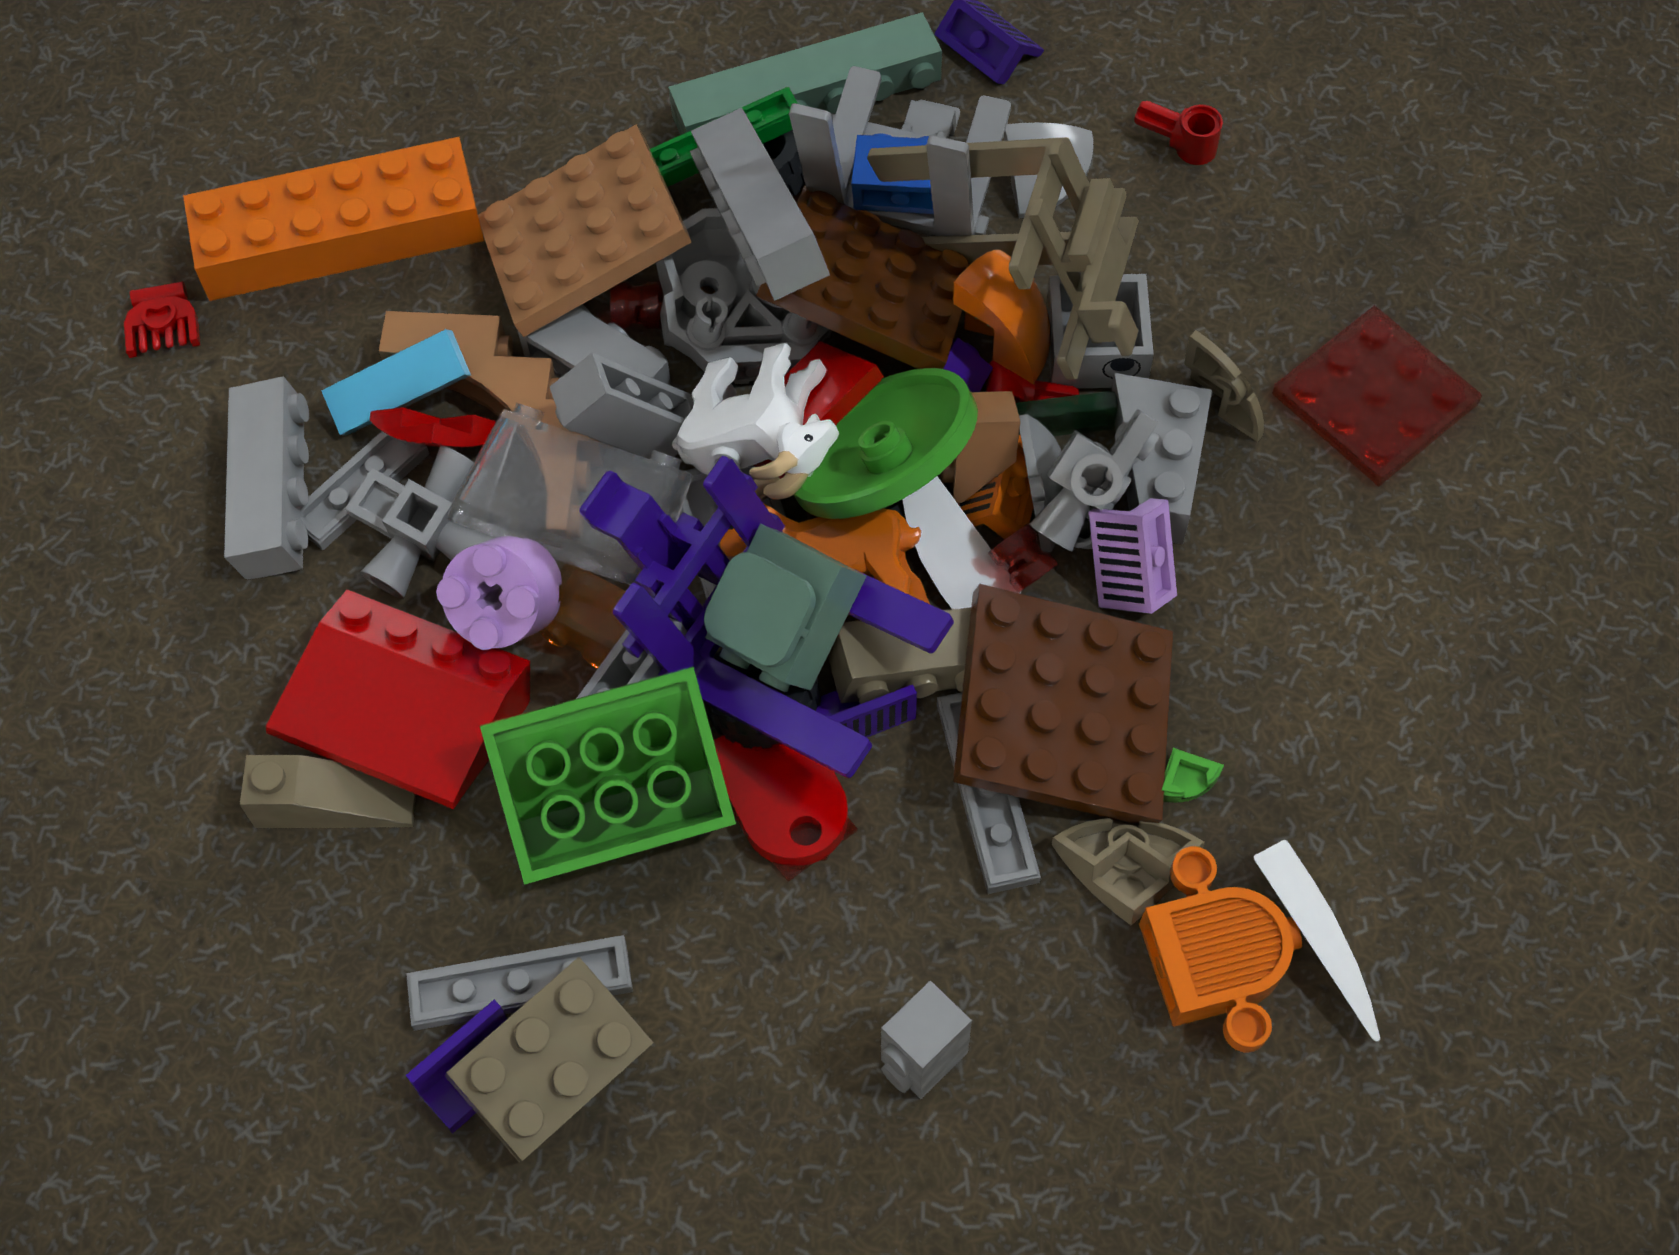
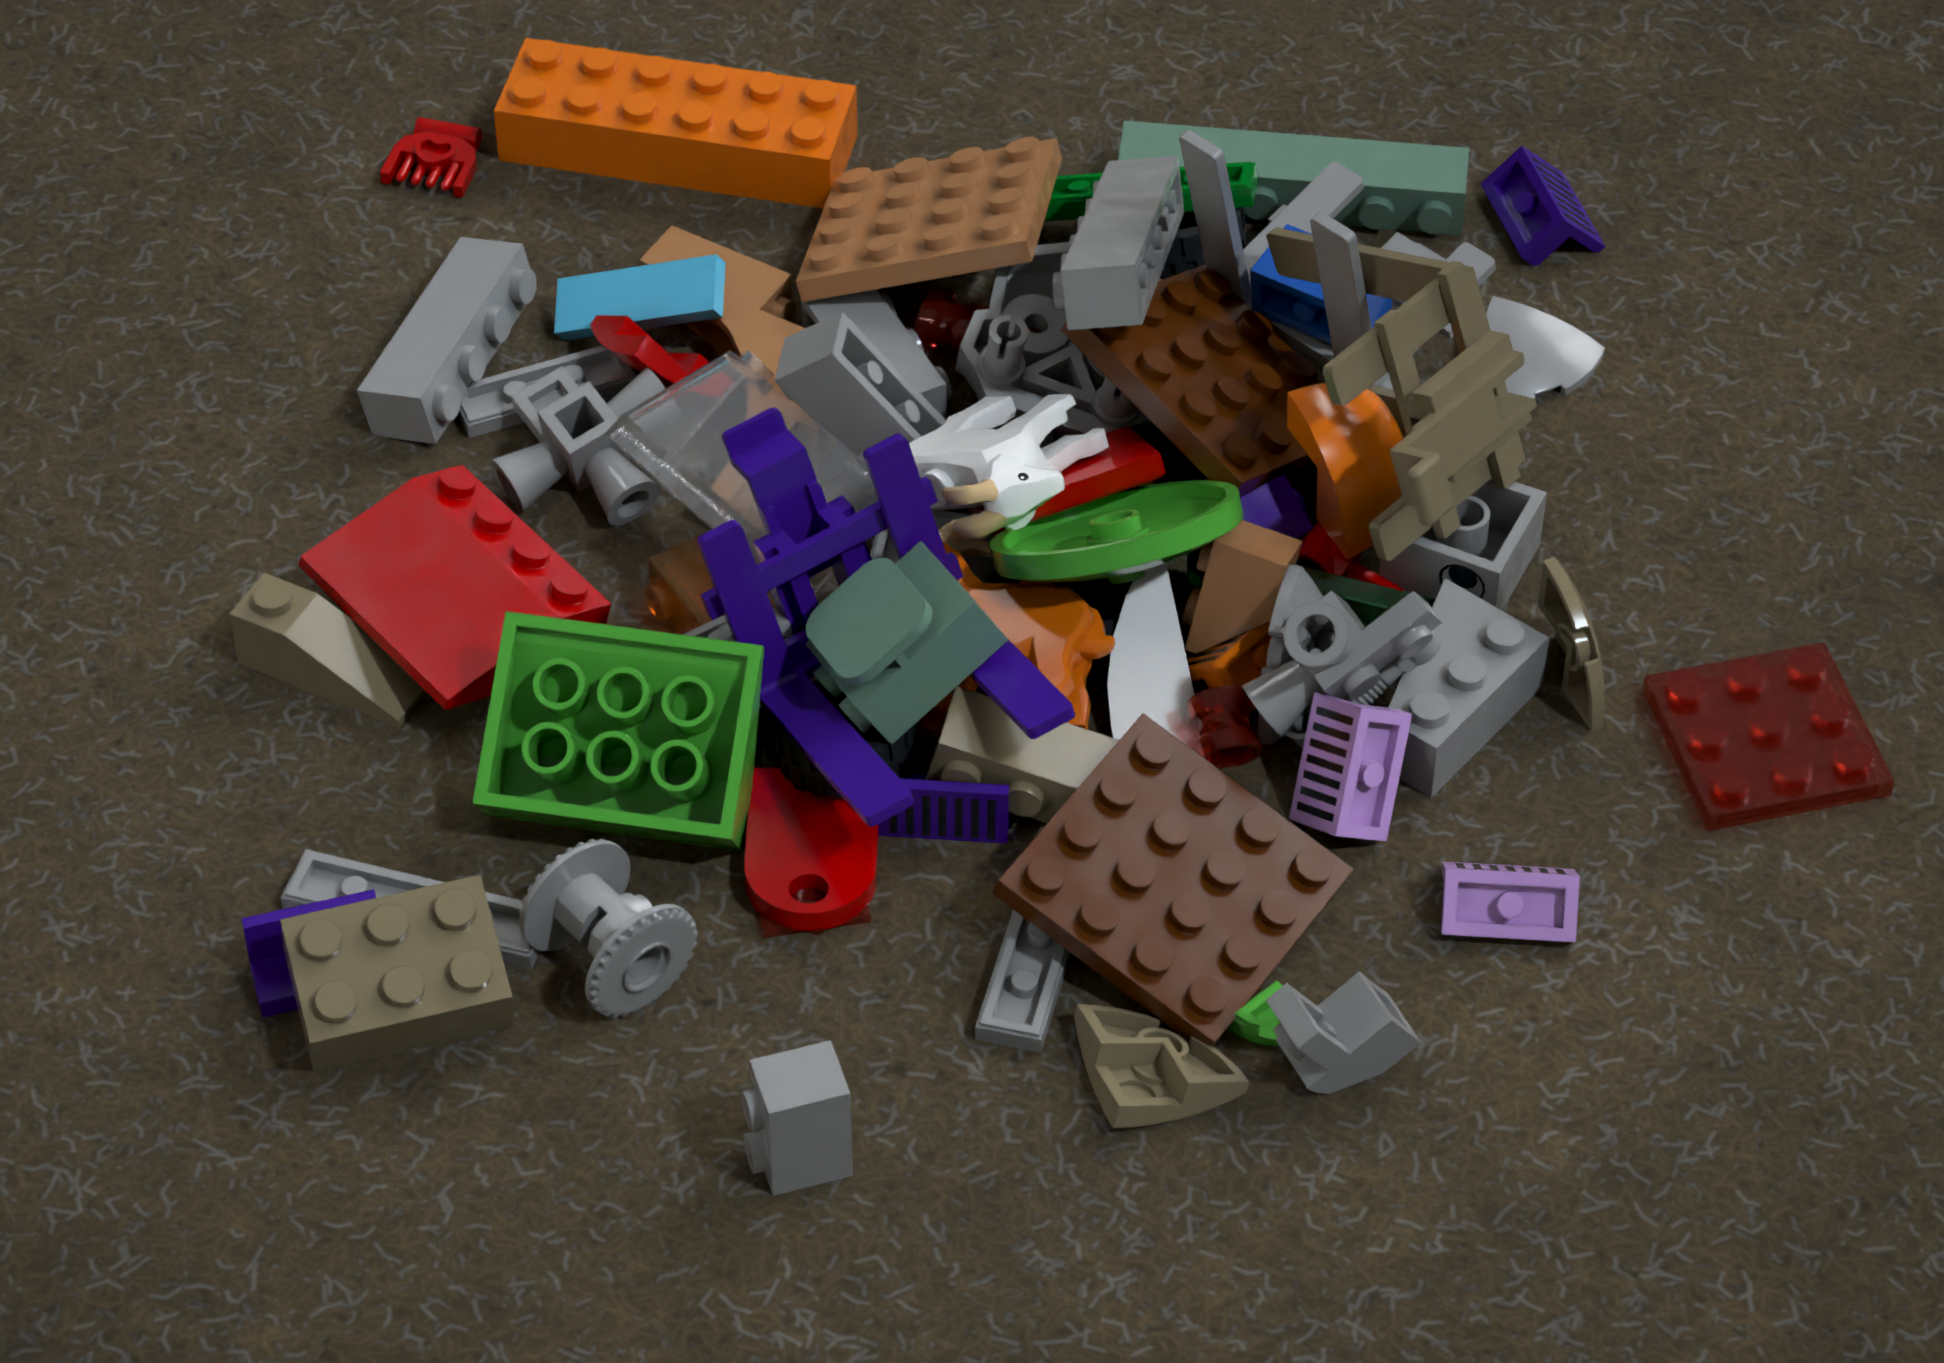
camera: 25 degrees right, 15 degrees down
(474, 594) = (616, 516): lavender brick -> none
(686, 938) = (633, 945): none -> light grey hose
(1192, 133) = (1717, 383): red axle -> none
(1218, 950) = (1191, 1183): orange piece -> none
(1250, 774) = (1344, 1037): none -> light grey brick
(1290, 605) = (1509, 901): none -> lavender panel
(1318, 926) = (1323, 1210): white sticker -> none

